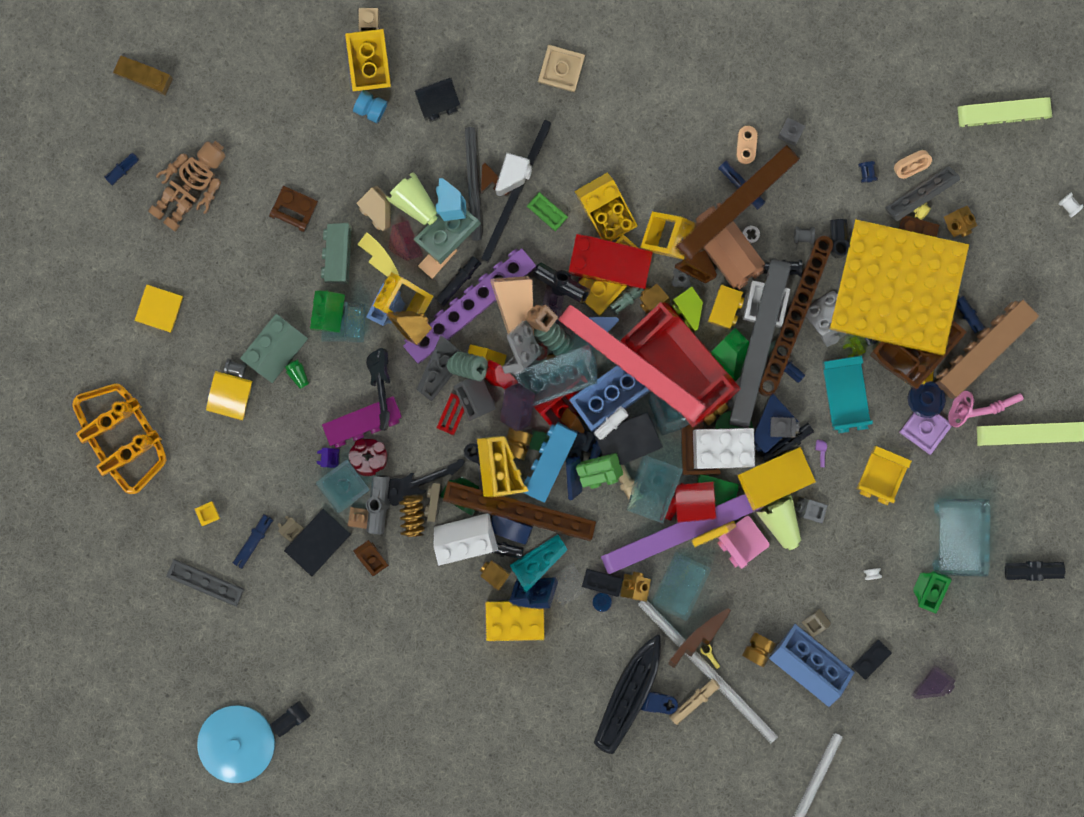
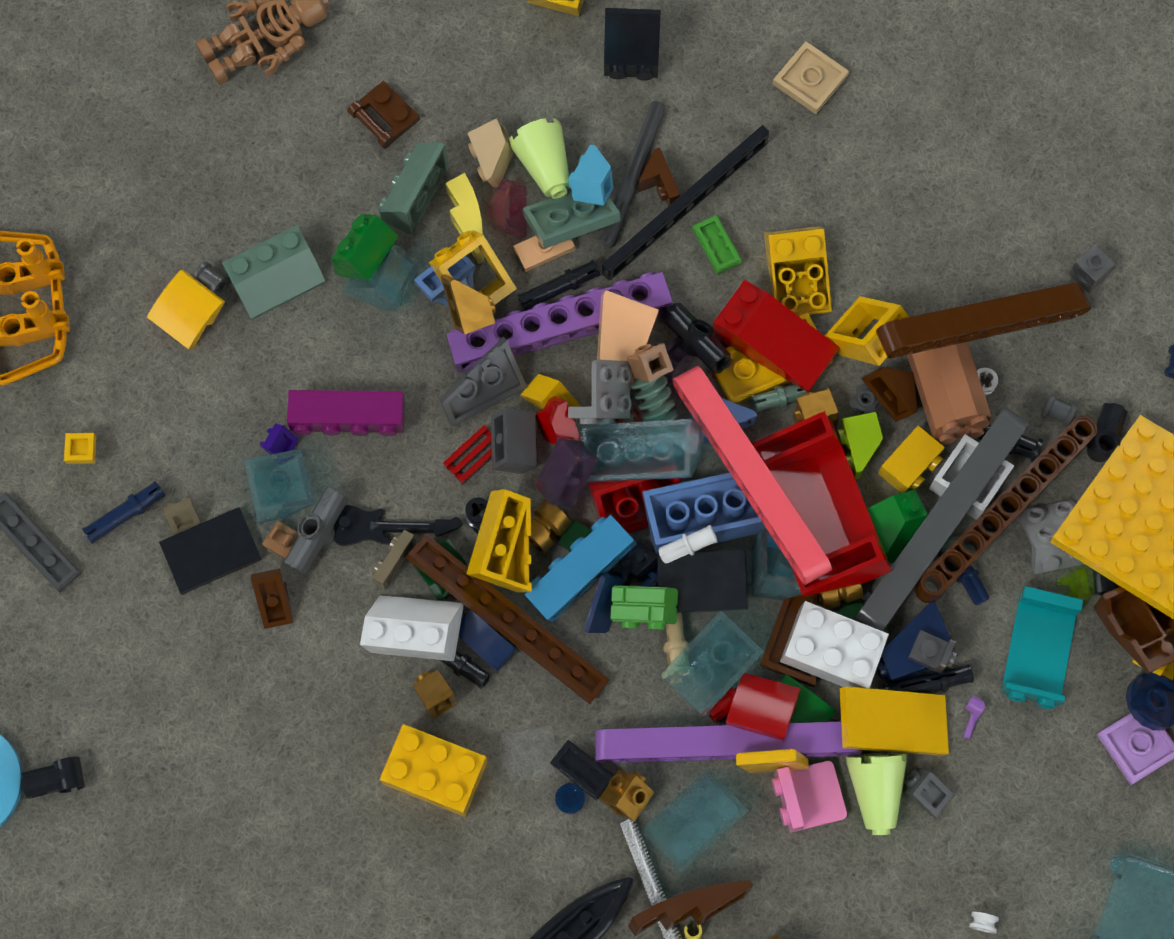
camera: 20 degrees right, 15 degrees down
(158, 308) = (150, 168): yellow tile -> none
(297, 373) = (289, 317): green cone -> none
(365, 447) = (332, 449): plate -> none
(369, 106) = (540, 27): dark azure wheel -> none
(377, 366) = (399, 350): black piece -> none
(412, 516) = (354, 564): pearl gold piece -> none
(468, 365) = (522, 391): sand green piece -> none
(513, 174) = (690, 167): white slope -> none
(537, 597) = (476, 739): dark blue slope -> none
(538, 561) = (503, 700): teal wing -> none
(572, 421) = (634, 524): reddish brown slope -> none
(725, 168) = (983, 285): dark blue pin -> none
(746, 144) = (1022, 264): light nougat plate -> none
(883, 475) = (1052, 784): yellow panel -> none

